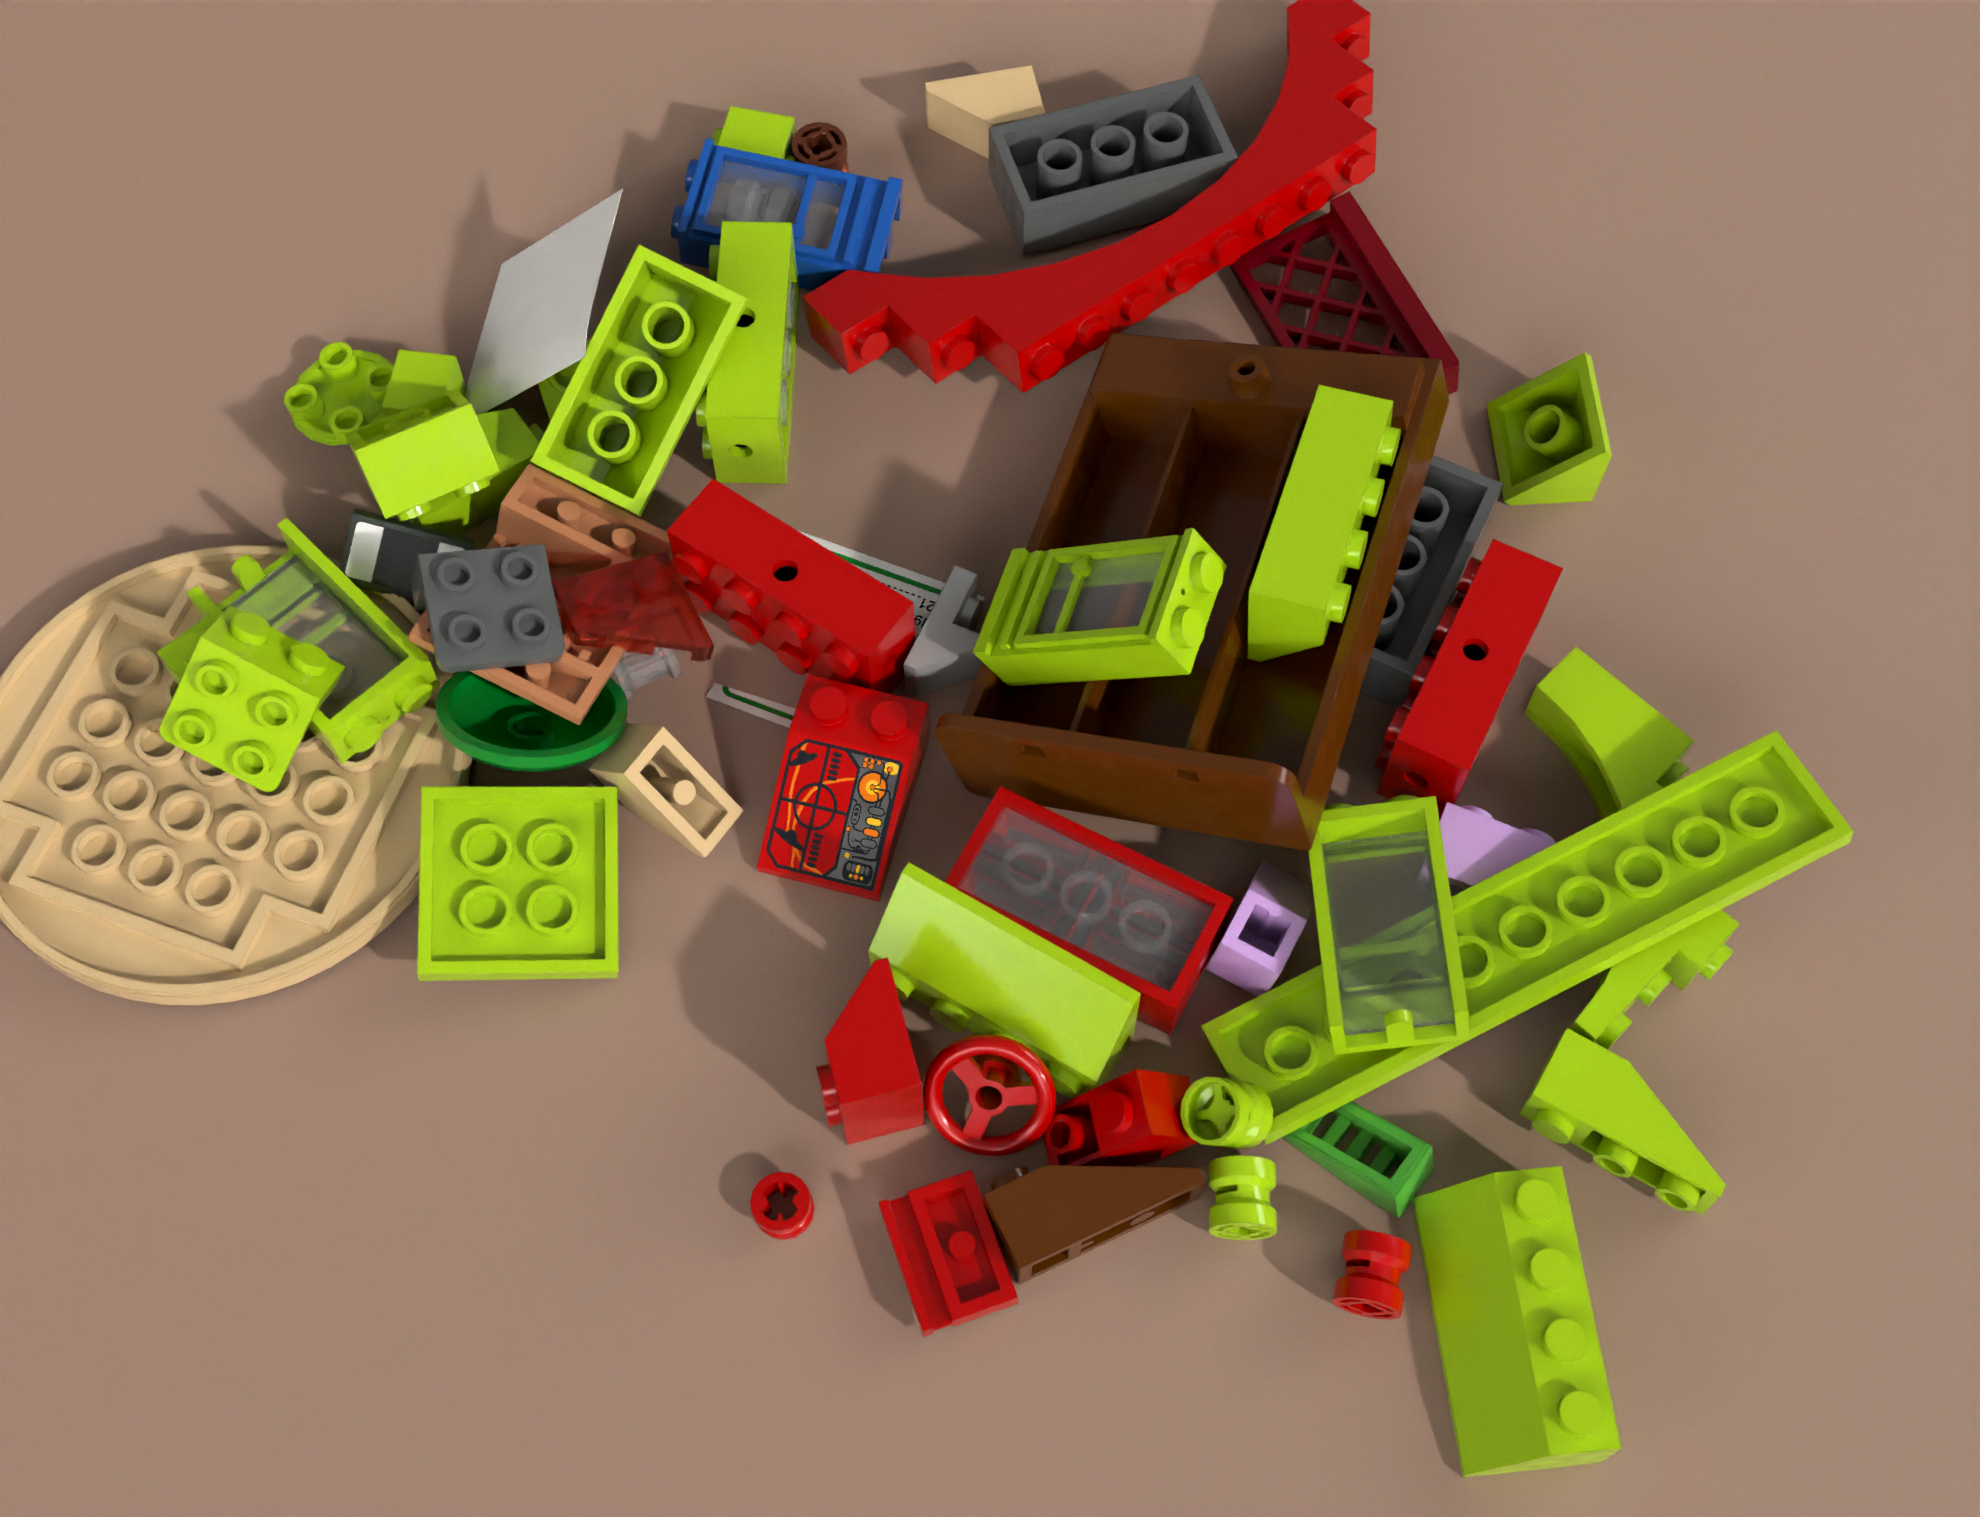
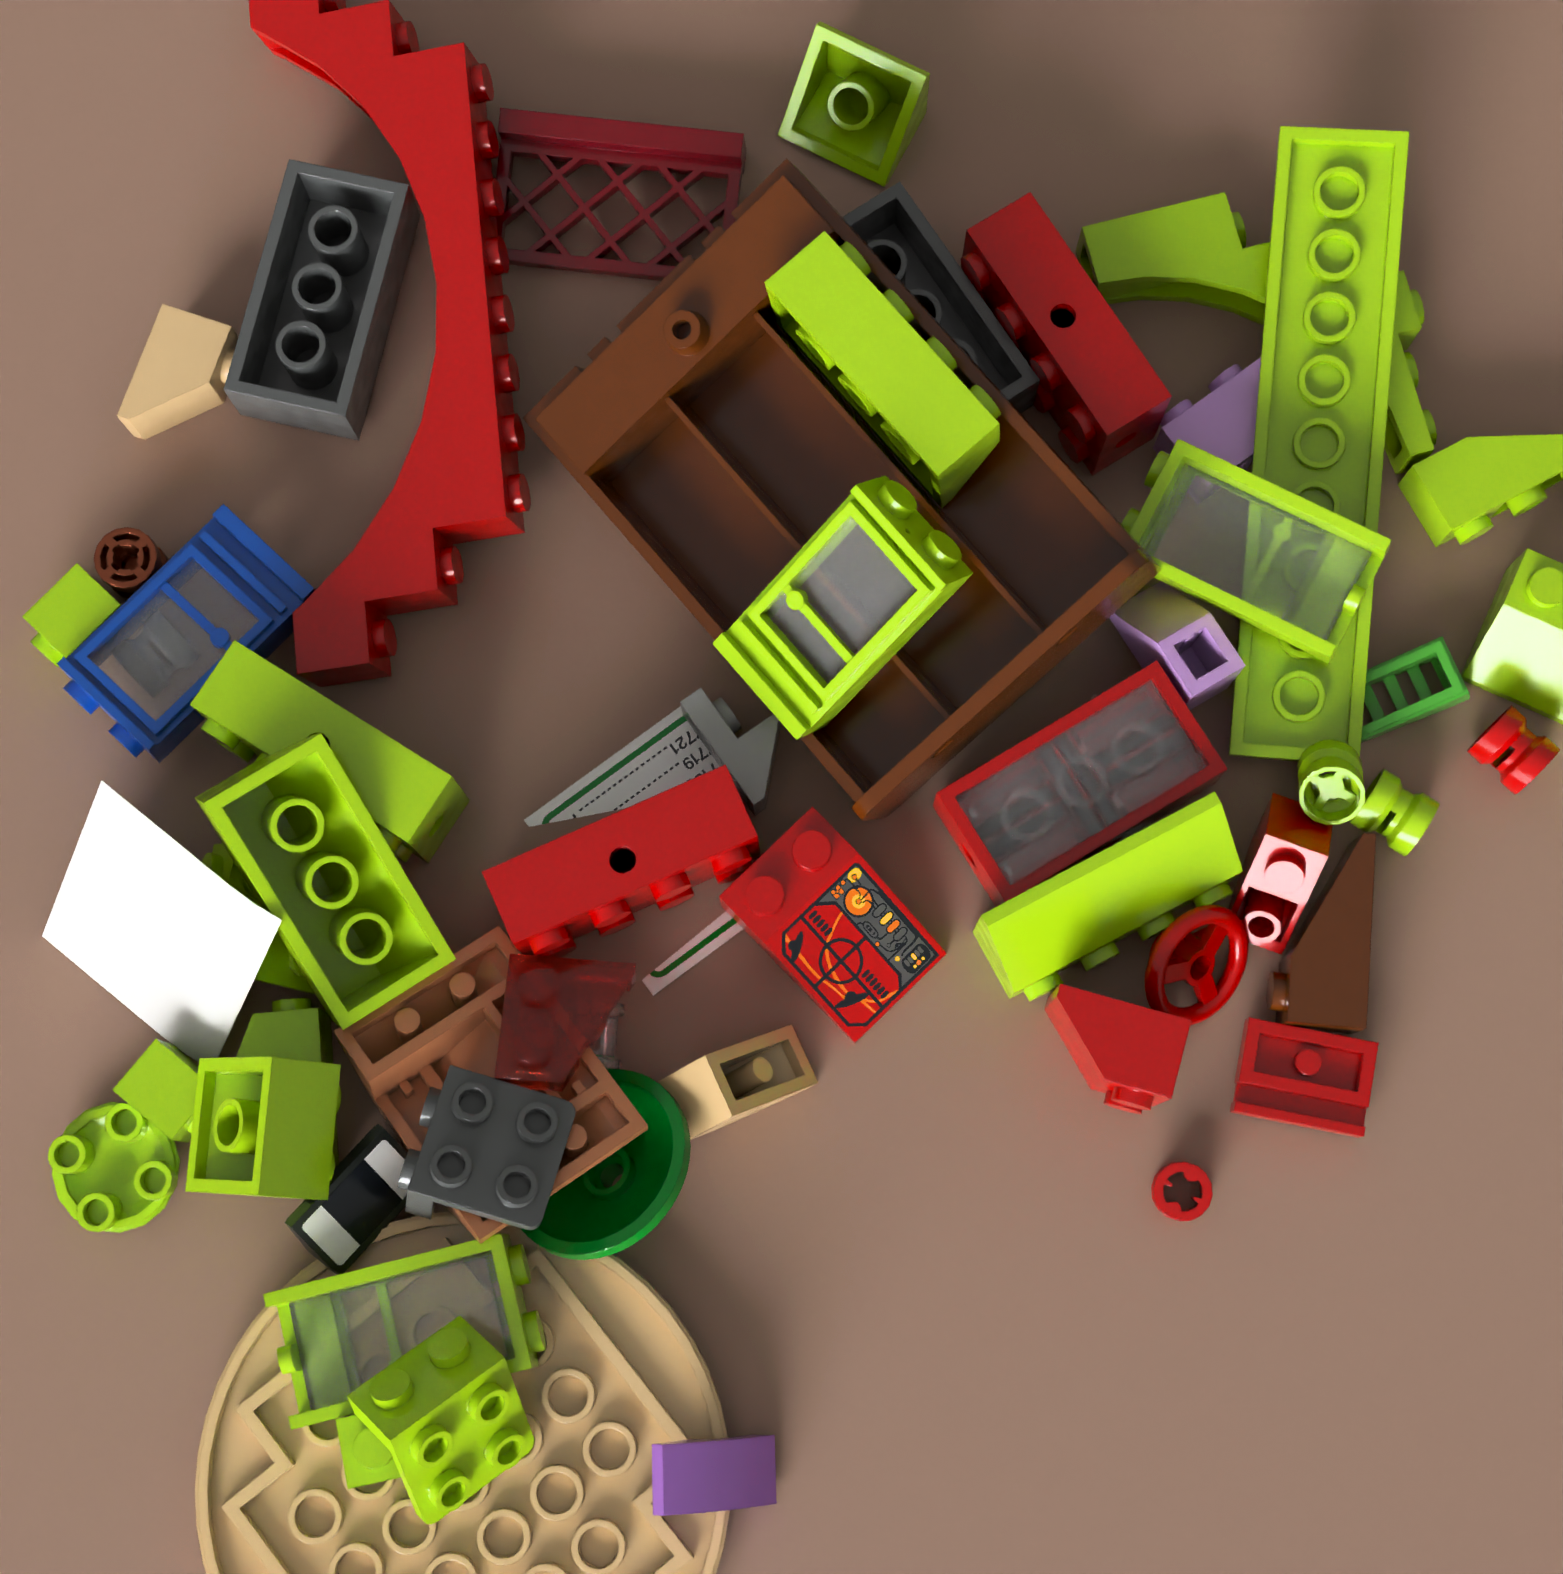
camera: 55 degrees left, 15 degrees up
(316, 939) = (713, 1474): none -> medium lavender slope
(518, 883) = (761, 1263): lime plate -> none

